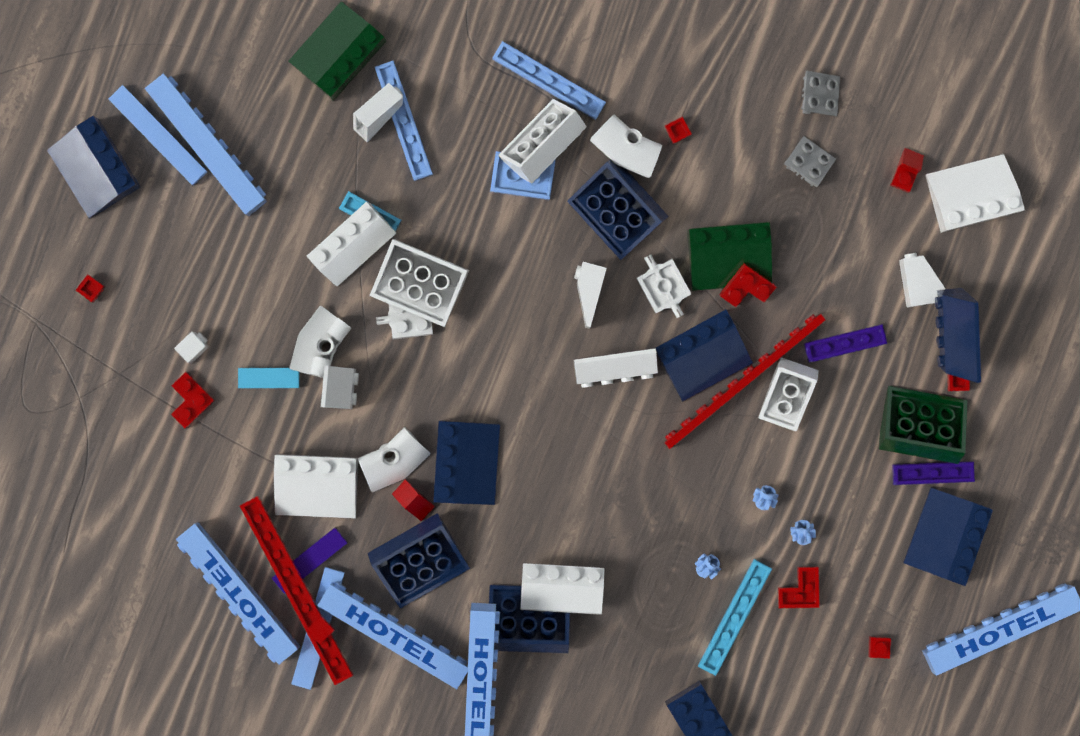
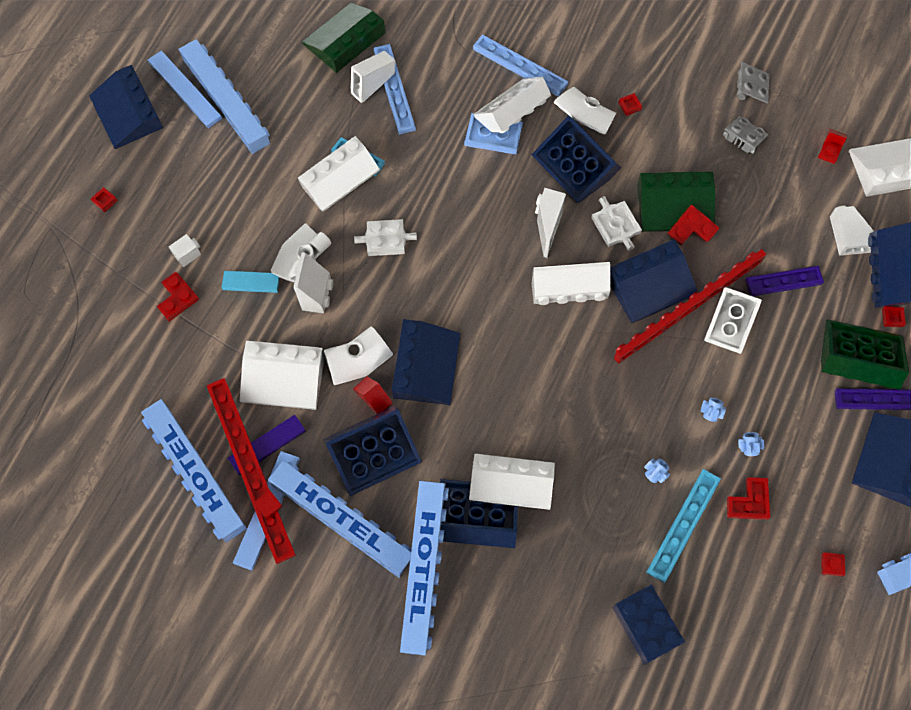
camera: 10 degrees right, 20 degrees down
(419, 282) = (396, 204): white slope -> none

